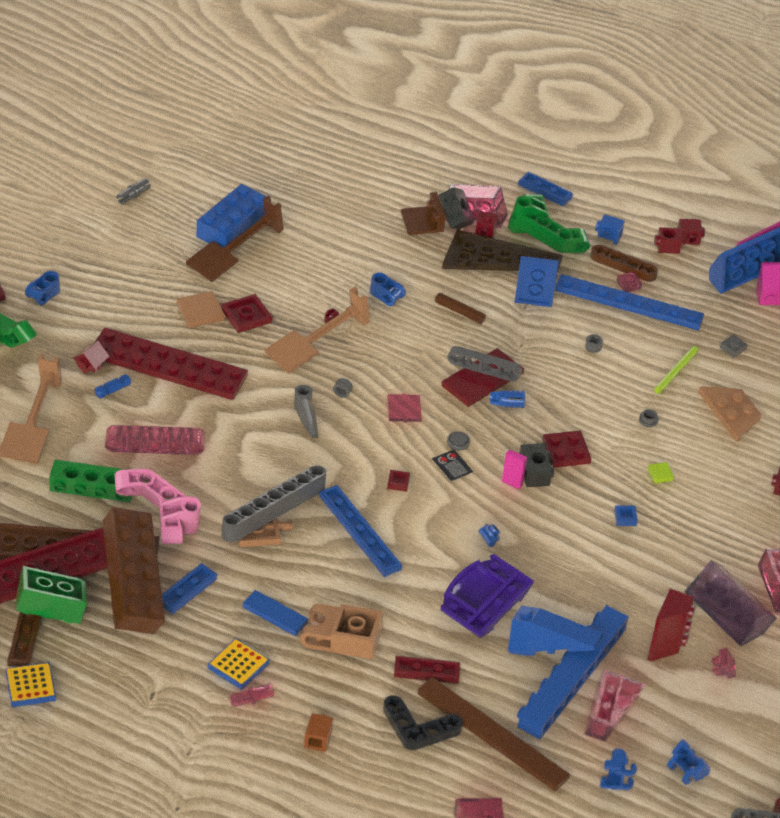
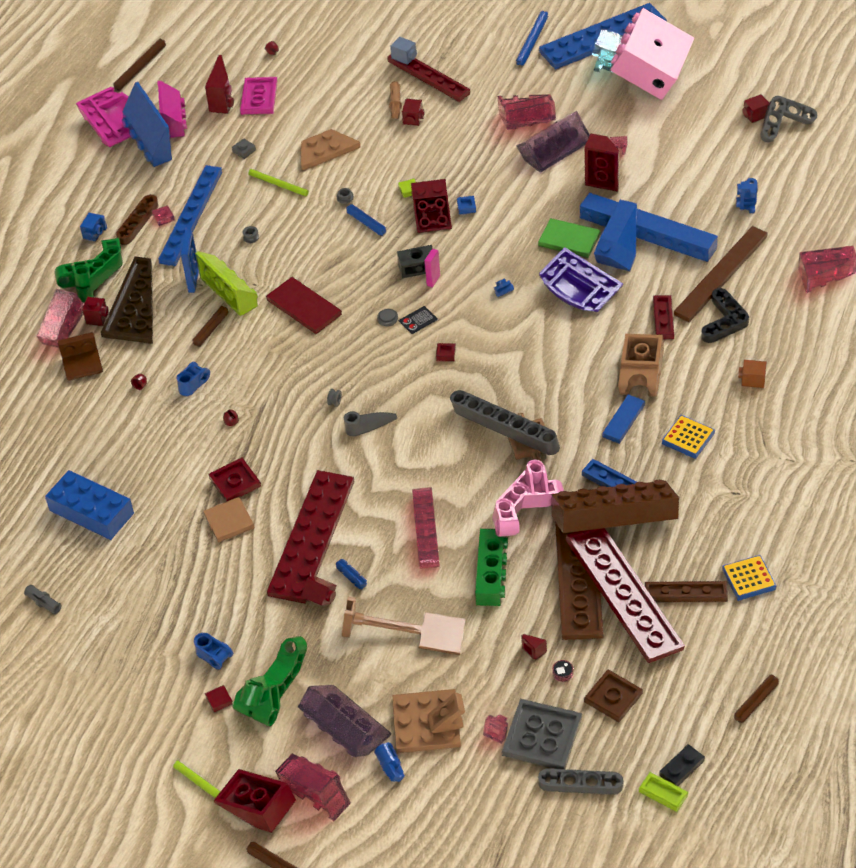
camera: 85 degrees left, 5 degrees up
(51, 595) = (652, 566): green slope -> none
(216, 260) = (151, 518): reddish brown piece -> none
(251, 695) = (723, 421): clear pink axle -> none
(295, 350) = (282, 441): medium nougat piece -> none
(360, 531) = (515, 370): blue tile -> none
(390, 256) = (139, 381): none -> dark red hinge
(404, 408) = (349, 356): clear pink piece -> none
(456, 208) = (76, 325): pearl dark grey brick -> none
(483, 366) = (296, 297): dark grey beam -> none
(508, 398) = (333, 283): blue hinge -> none
(513, 313) = (226, 283): none -> lime slope
(547, 189) = (28, 278): blue tile -> none
(567, 448) = (386, 244): dark red plate -> none
(569, 597) = (571, 236): none -> bright green tile
(609, 433) = (366, 219): none -> blue axle
(611, 703) = (683, 202): clear pink wedge -> none
(624, 484) = (431, 205): none -> dark red slope
(668, 240) = (107, 188): dark red brick -> none
(688, 762) = (726, 158): blue piece -> none
(691, 231) = (94, 175): dark red brick -> none

